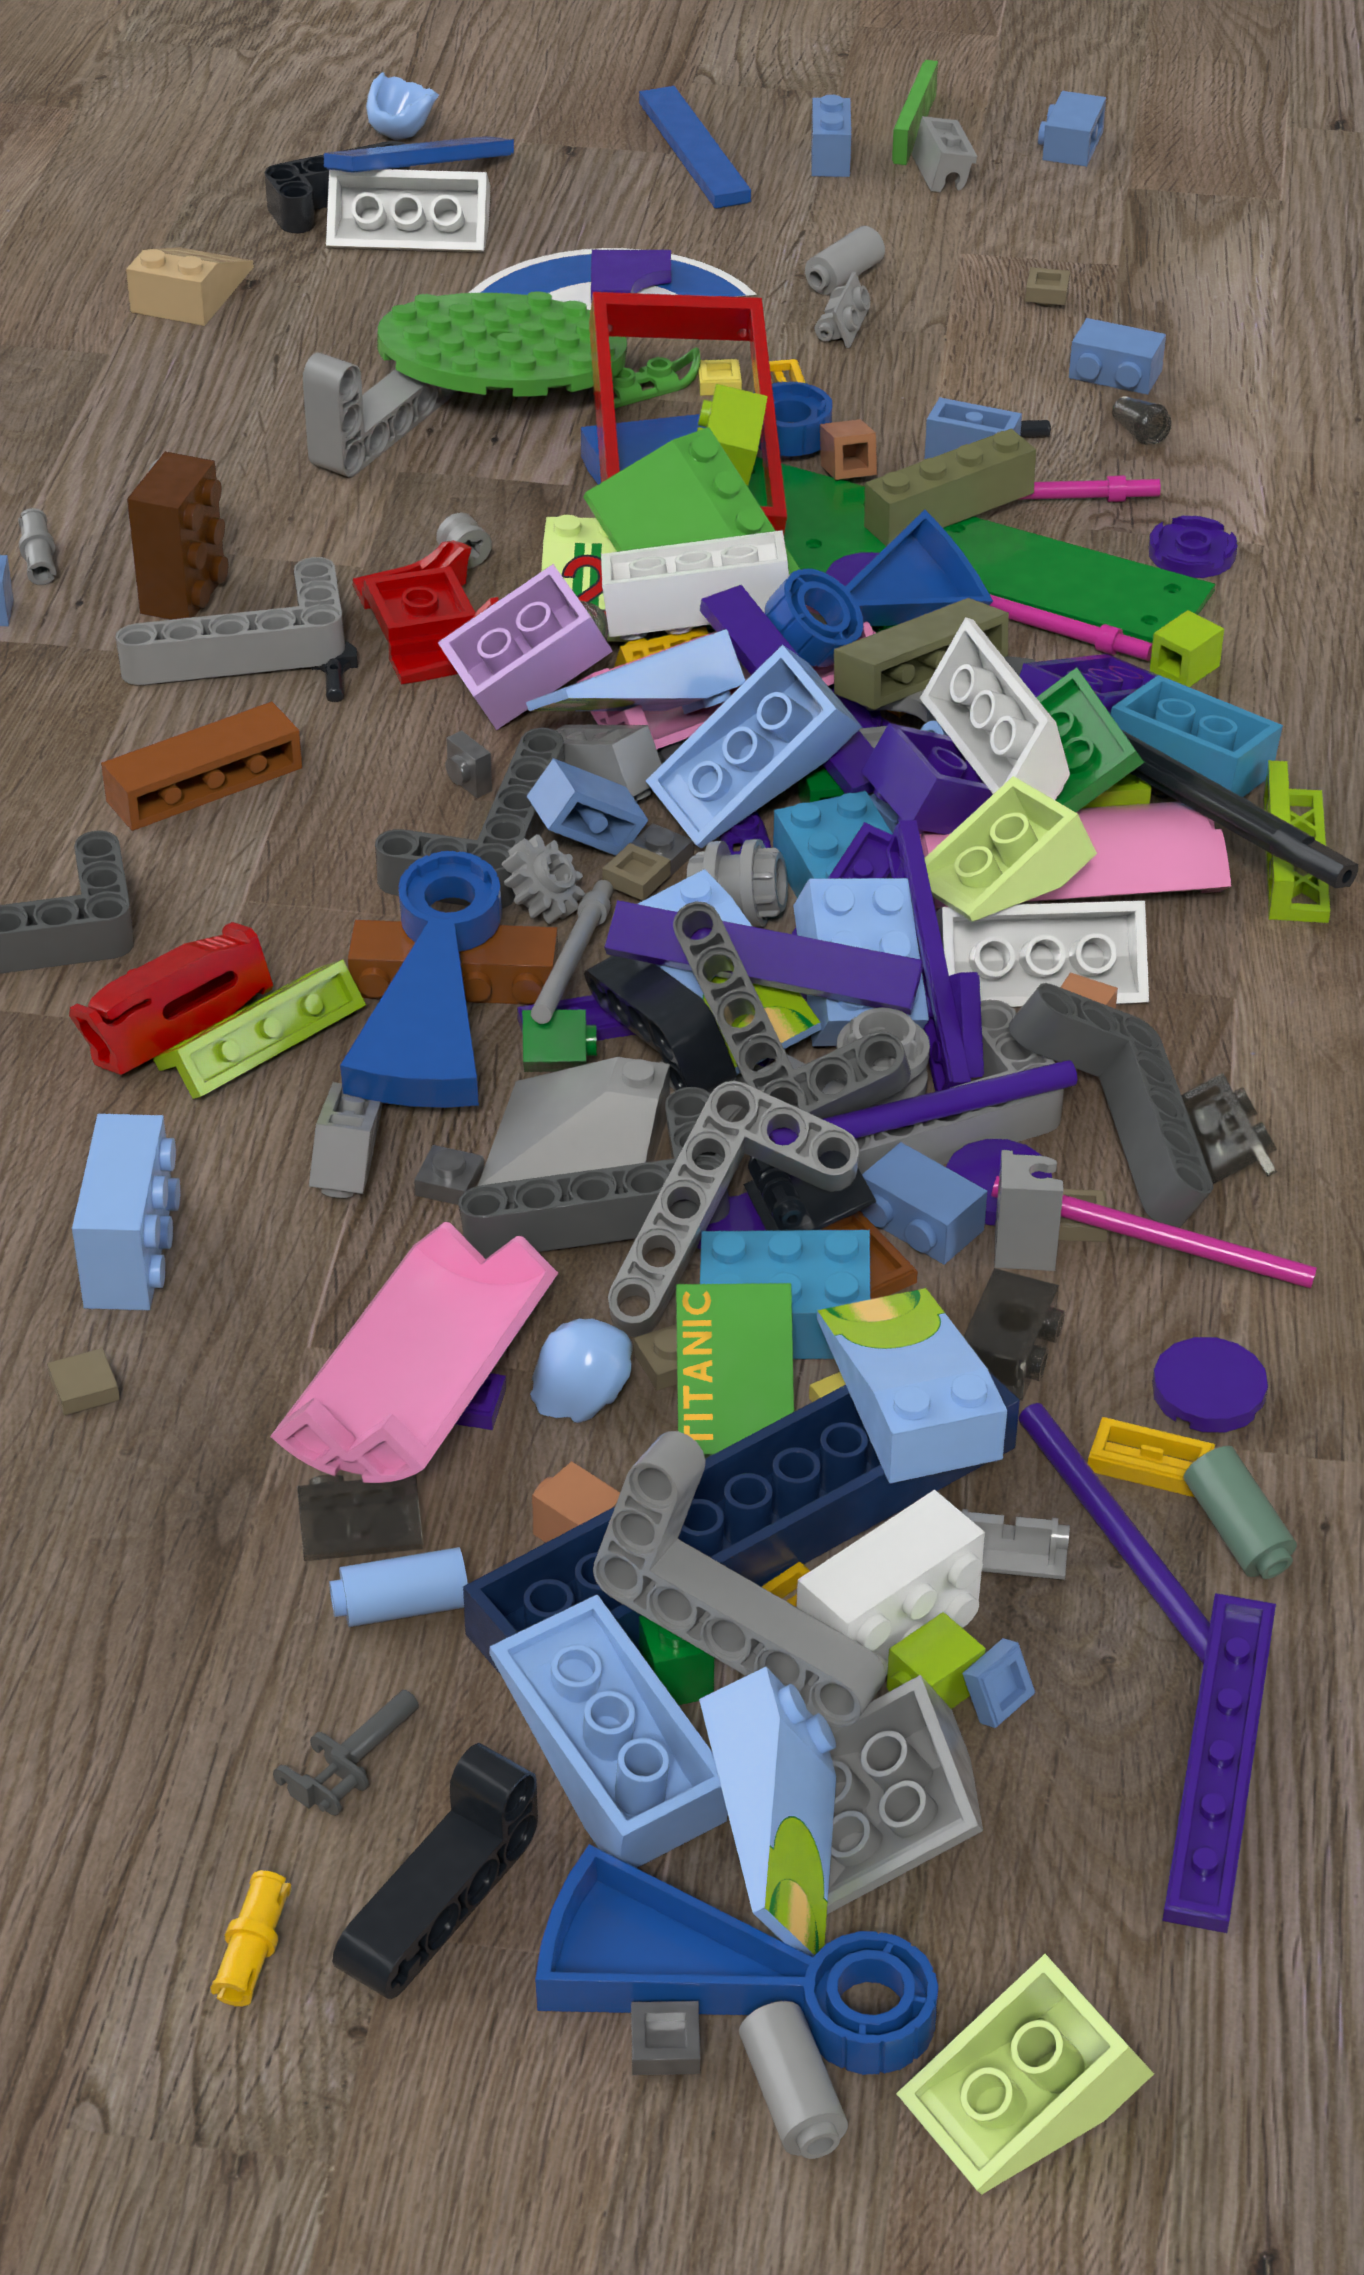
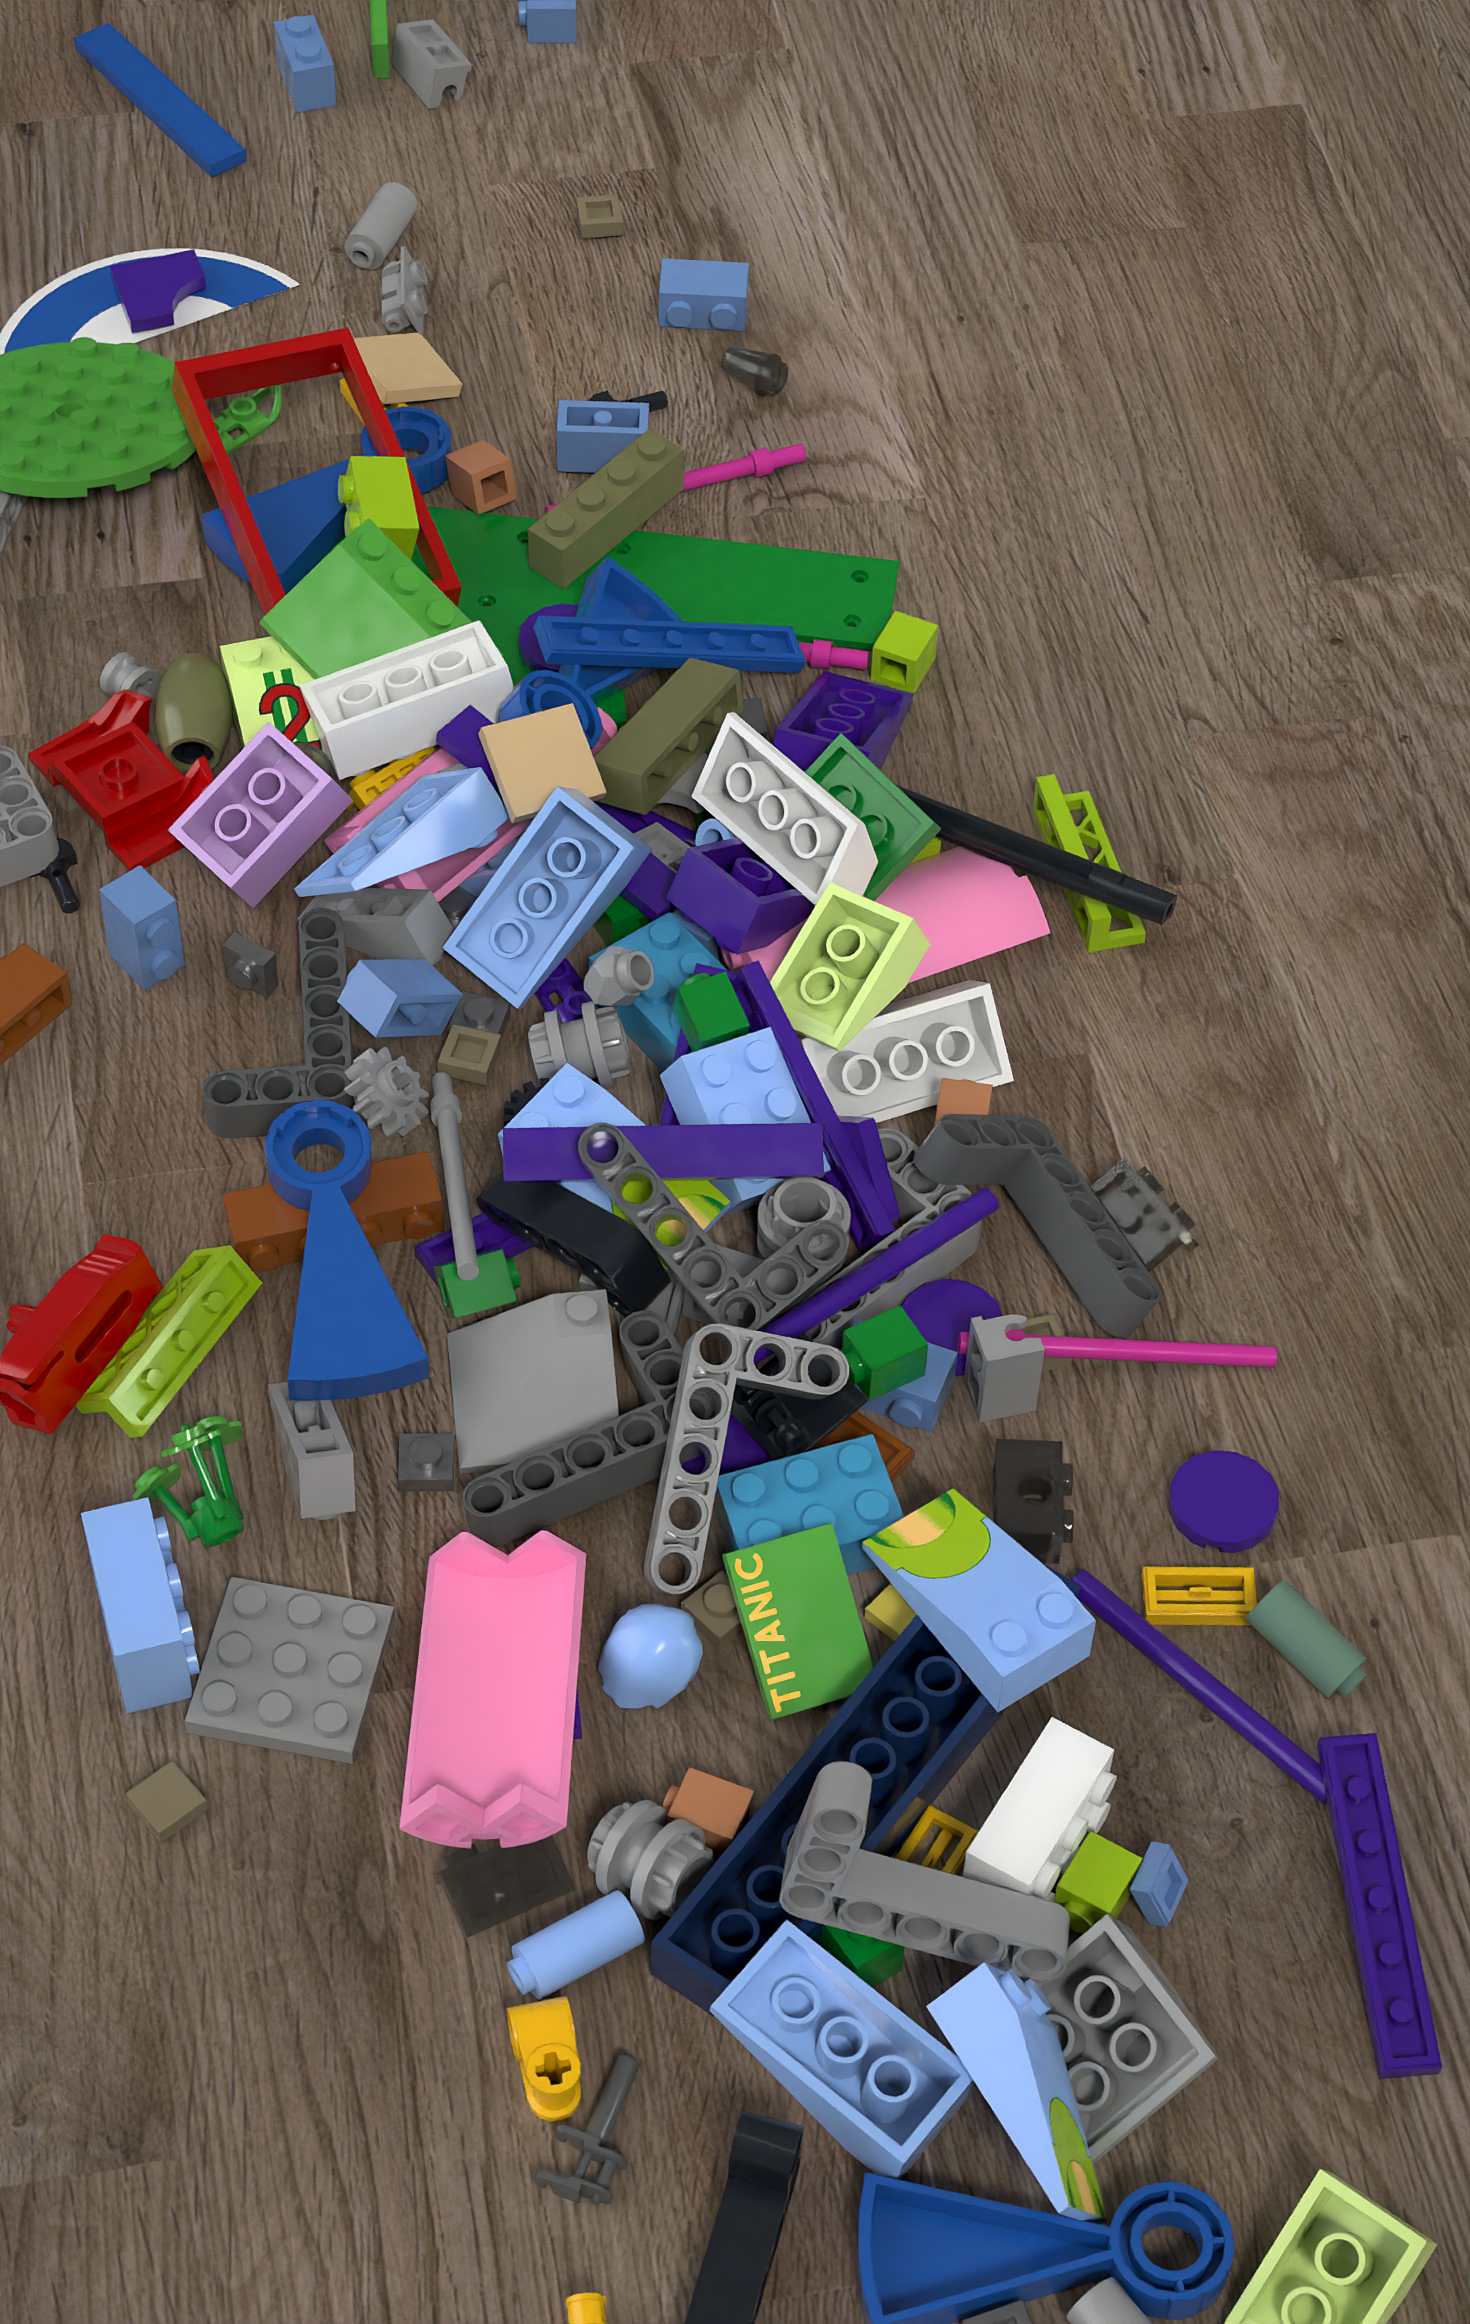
camera: 20 degrees left, 10 degrees up
(231, 1169) = (217, 1512): none -> green plant
(246, 1307) = (290, 1670): none -> light grey plate
(332, 1672) = (547, 2051): none -> yellow piece
(381, 710) = (142, 927): none -> medium blue brick
(497, 1520) = (648, 1858): none -> light grey piece
(504, 561) = (193, 711): none -> olive piece
(720, 372) = (307, 405): light yellow tile -> none
(788, 619) = (536, 756): none -> tan tile
(788, 821) = (619, 977): none -> light grey rock
(815, 361) = (406, 368): none -> tan tile
(857, 851) = (709, 1011): none -> green brick
(907, 1167) = (884, 1353): none -> green brick
(950, 583) = (667, 643): none -> blue tile
(1025, 1549) = (1127, 1728): light grey hinge -> none
(1192, 547) = (859, 518): dark purple tile -> none
(1201, 732) = (961, 762): dark azure brick -> none

